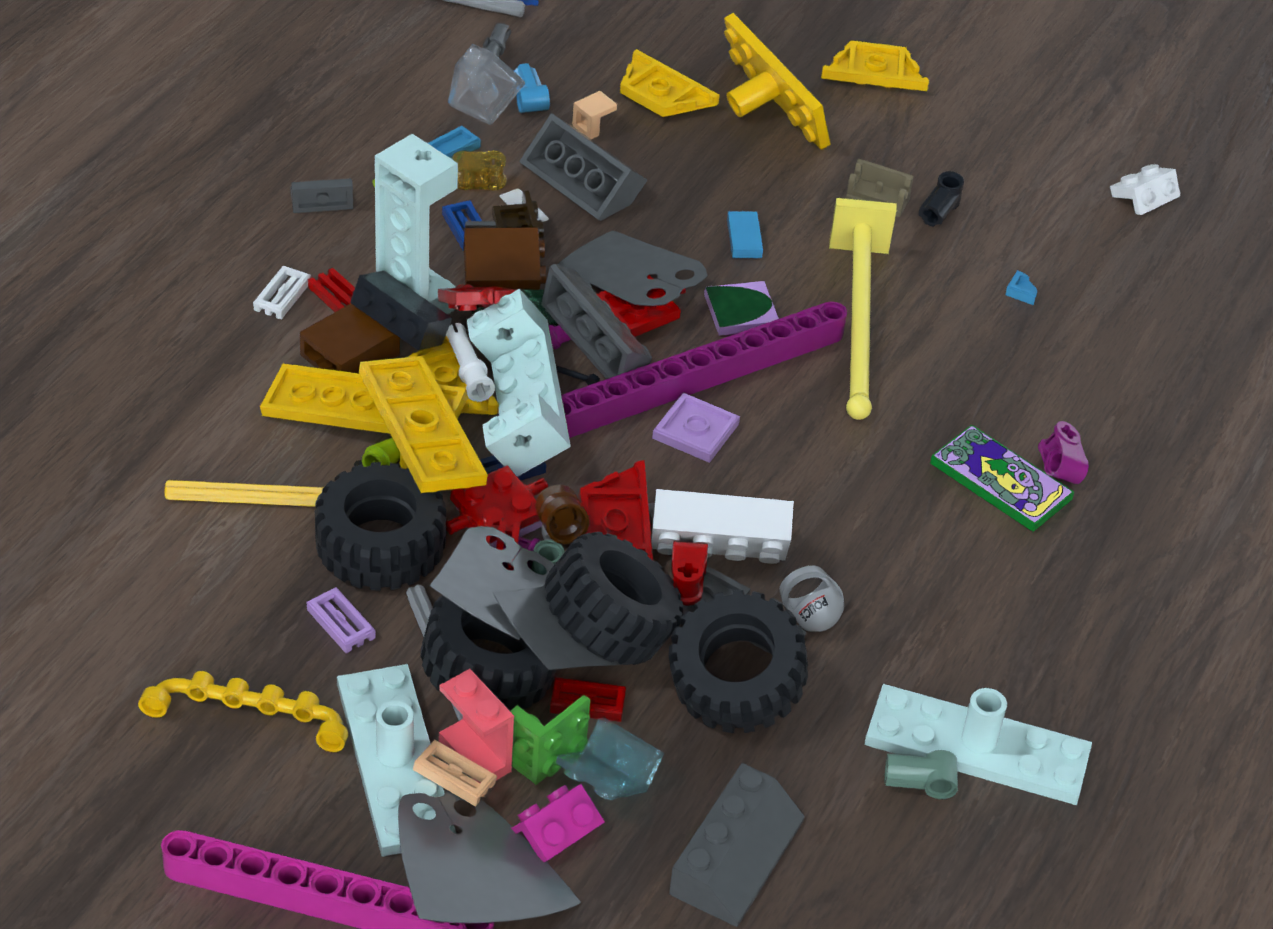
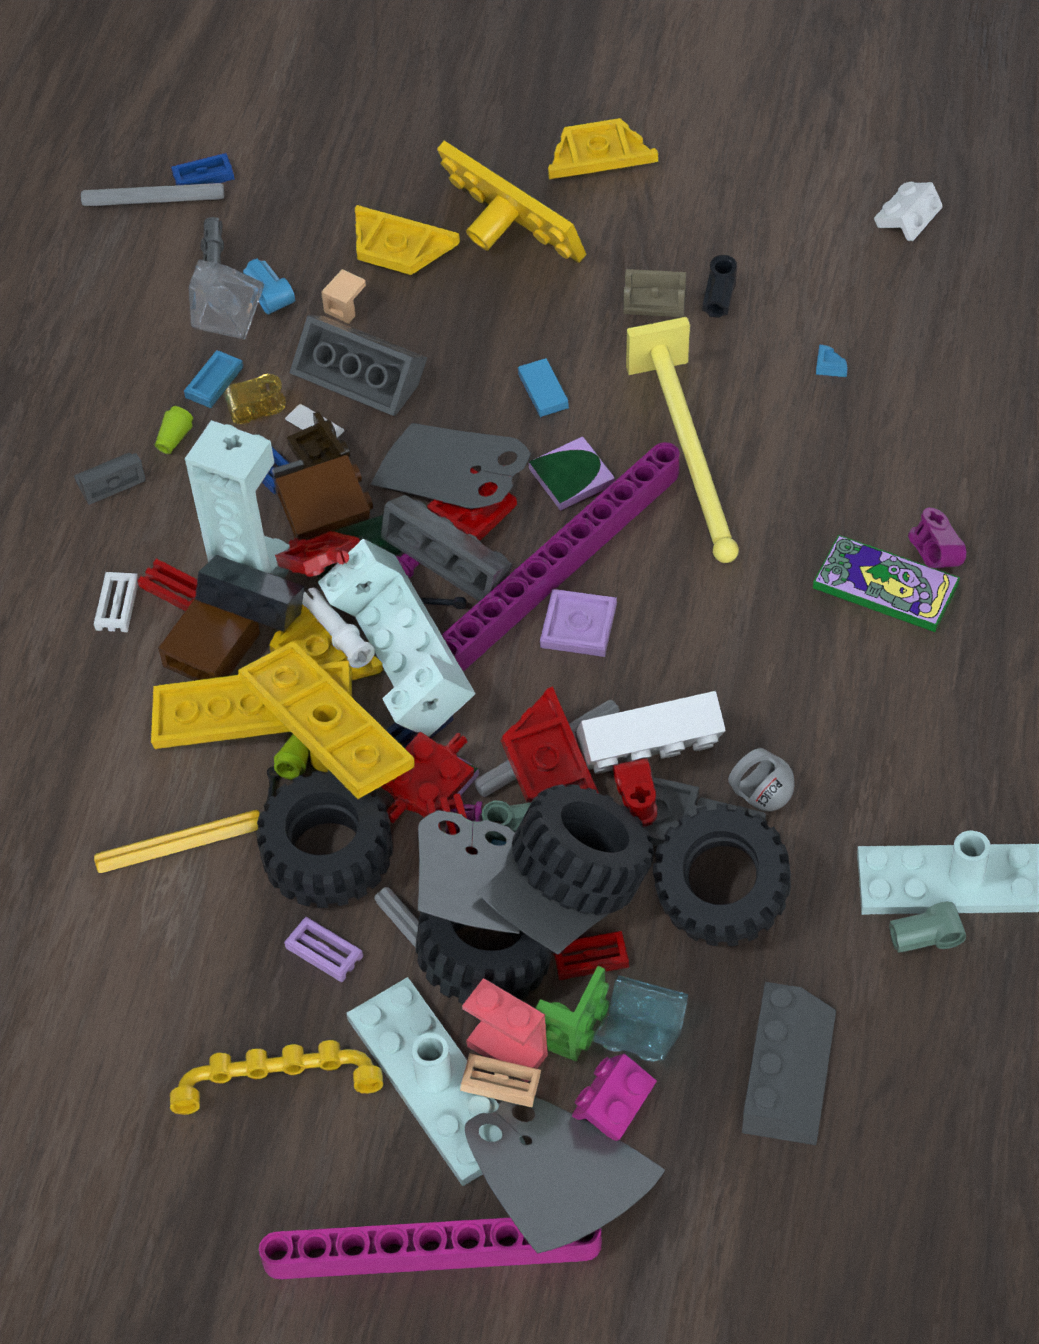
camera: 10 degrees left, 10 degrees up
(561, 514) = (496, 771): reddish brown wheel -> none

